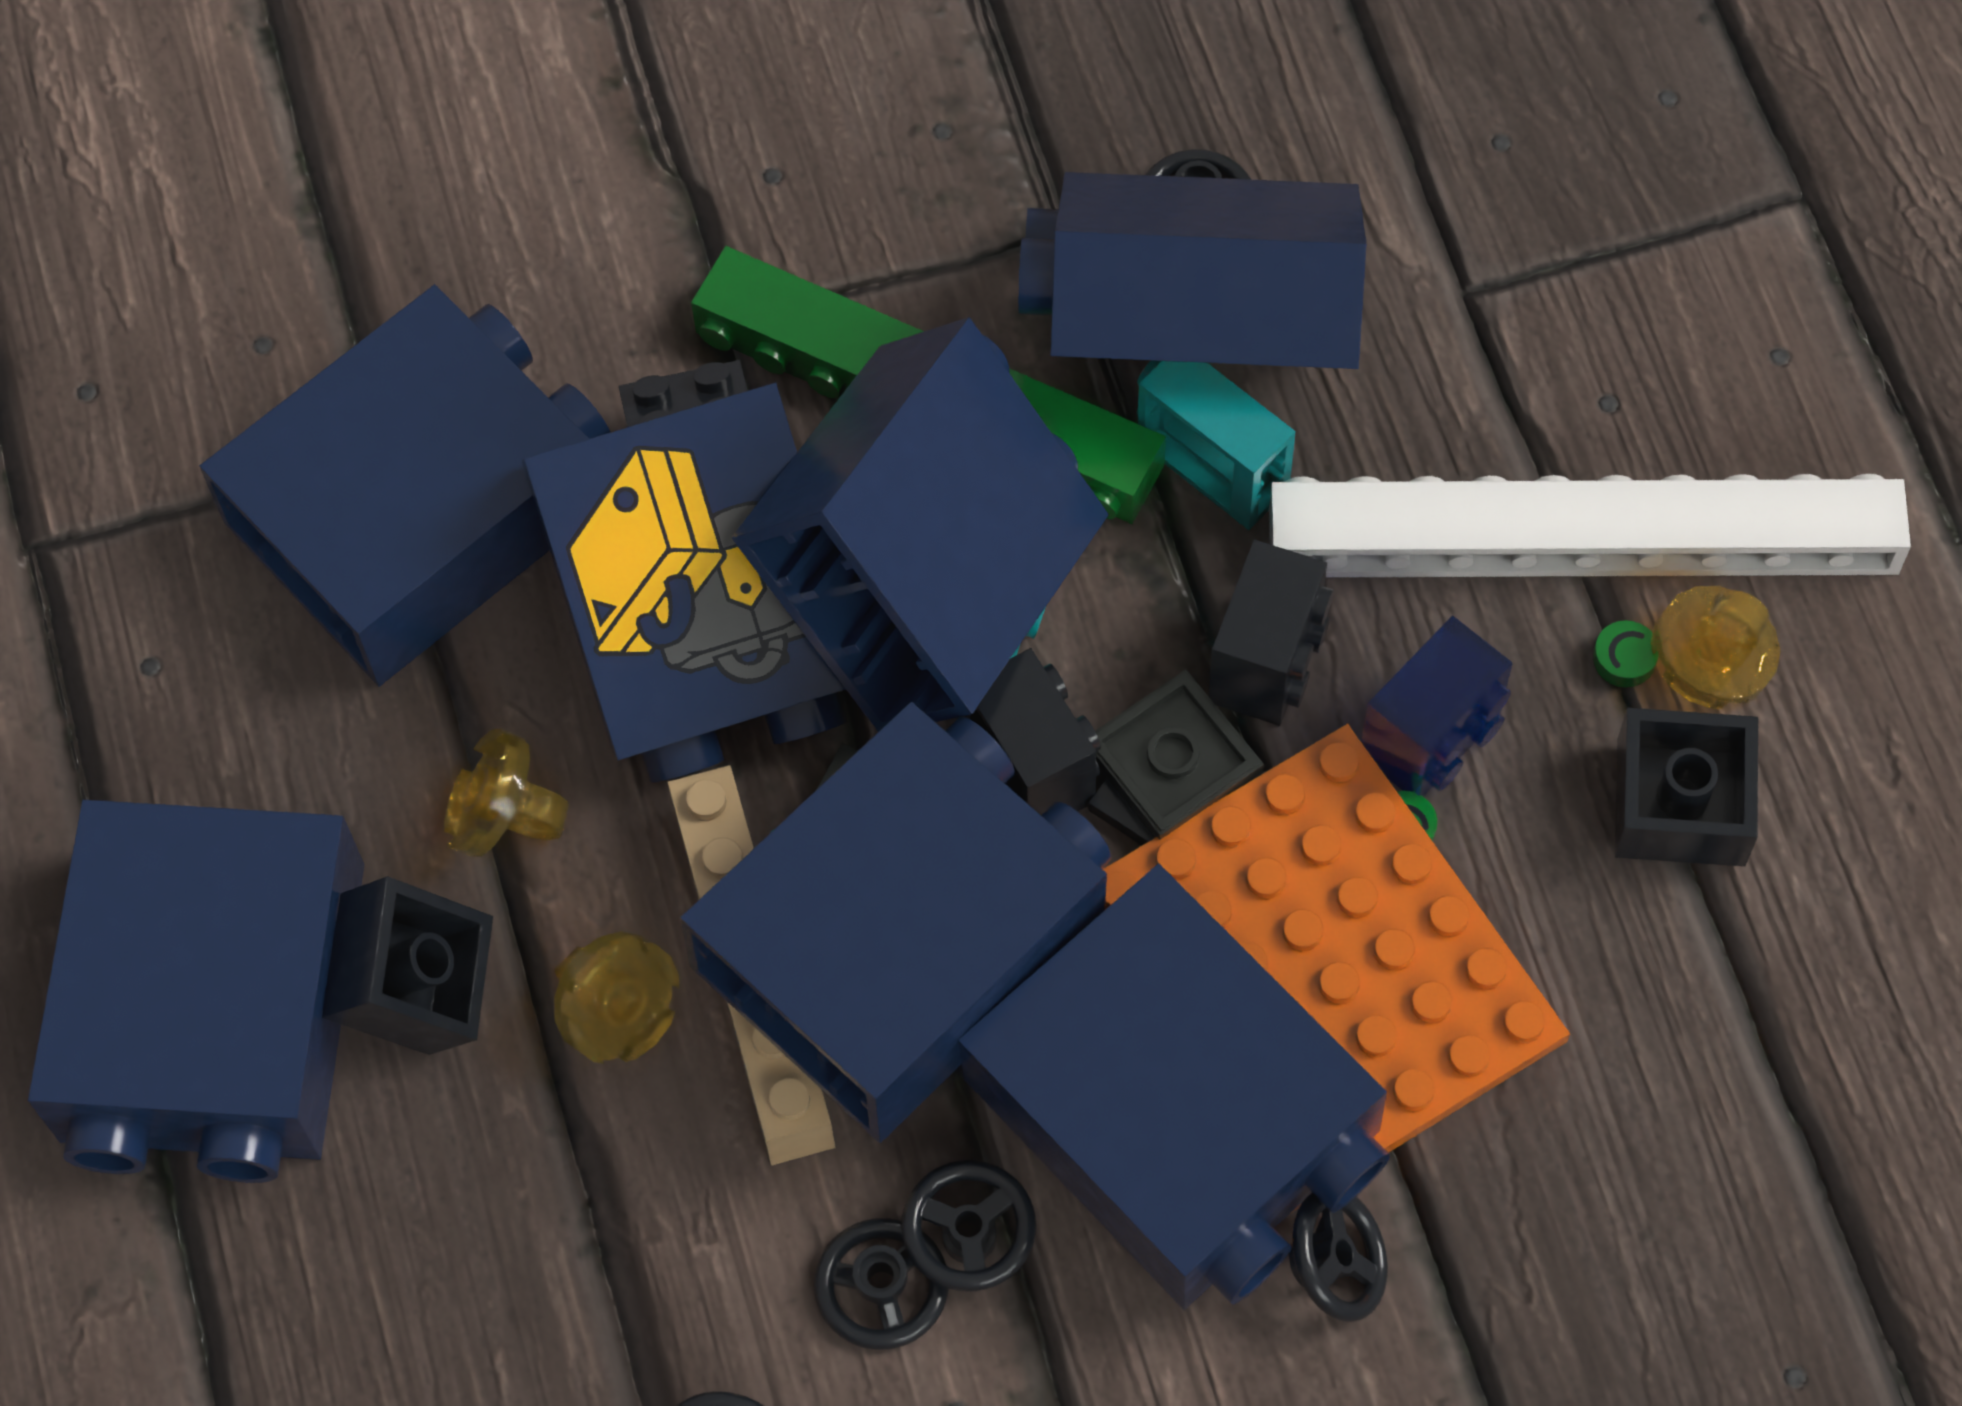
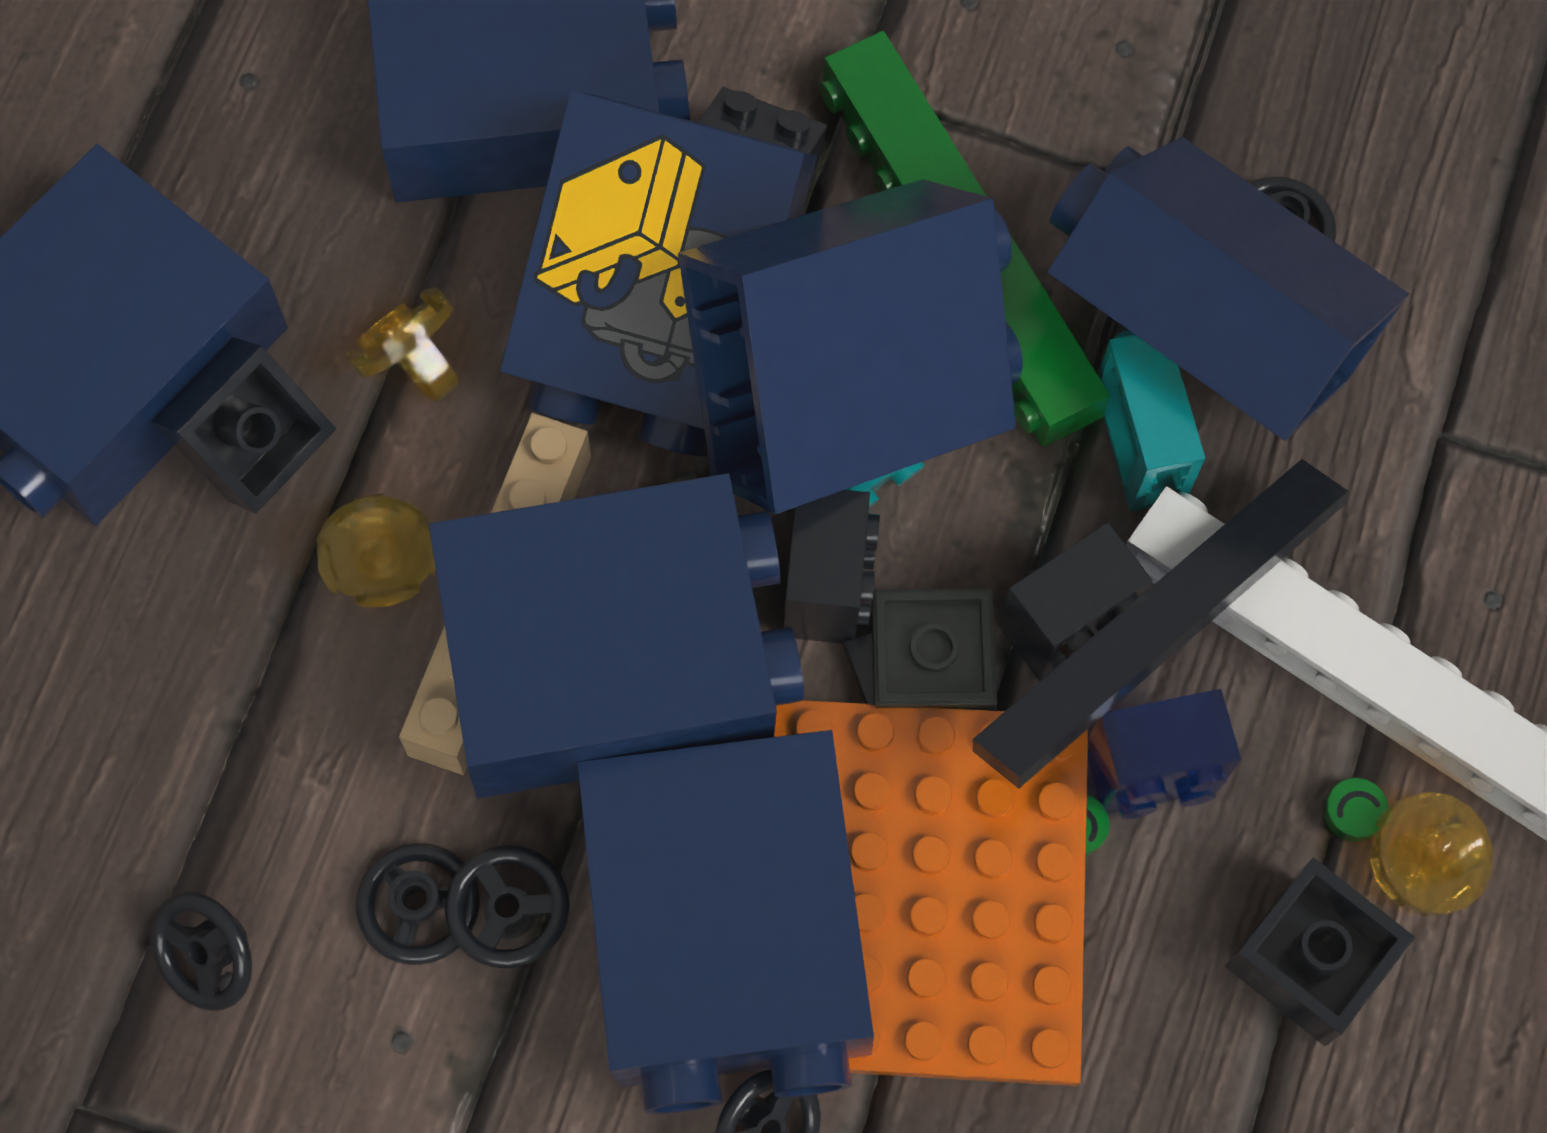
camera: 30 degrees right, 5 degrees up
(1358, 597) = (1158, 624): none -> black tile

